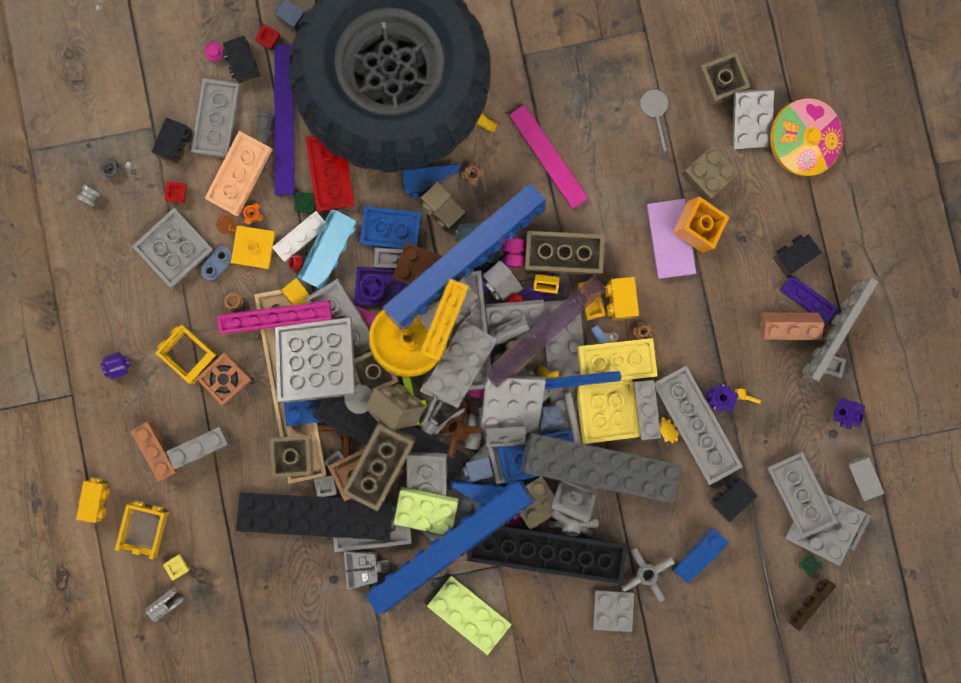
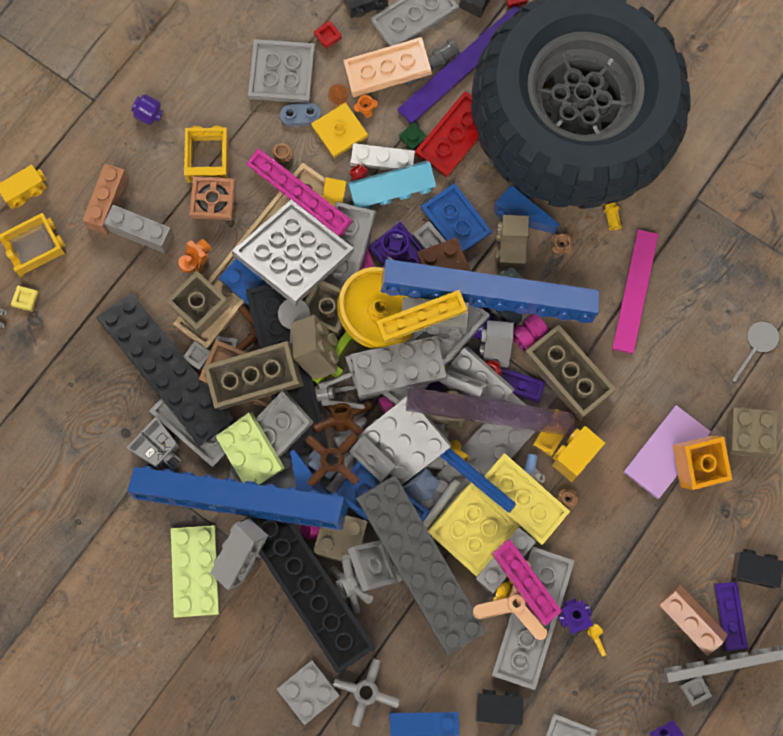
camera: 50 degrees right, 10 degrees down
(255, 429) = (194, 257): none -> orange hips
(484, 473) = (325, 453): none -> reddish brown bar
(487, 579) = (238, 553): none -> light grey brick
(546, 280) = (534, 377): yellow piece -> none
(674, 411) = (526, 582): none -> dark pink plate
(687, 430) = (506, 606): none -> light nougat piece

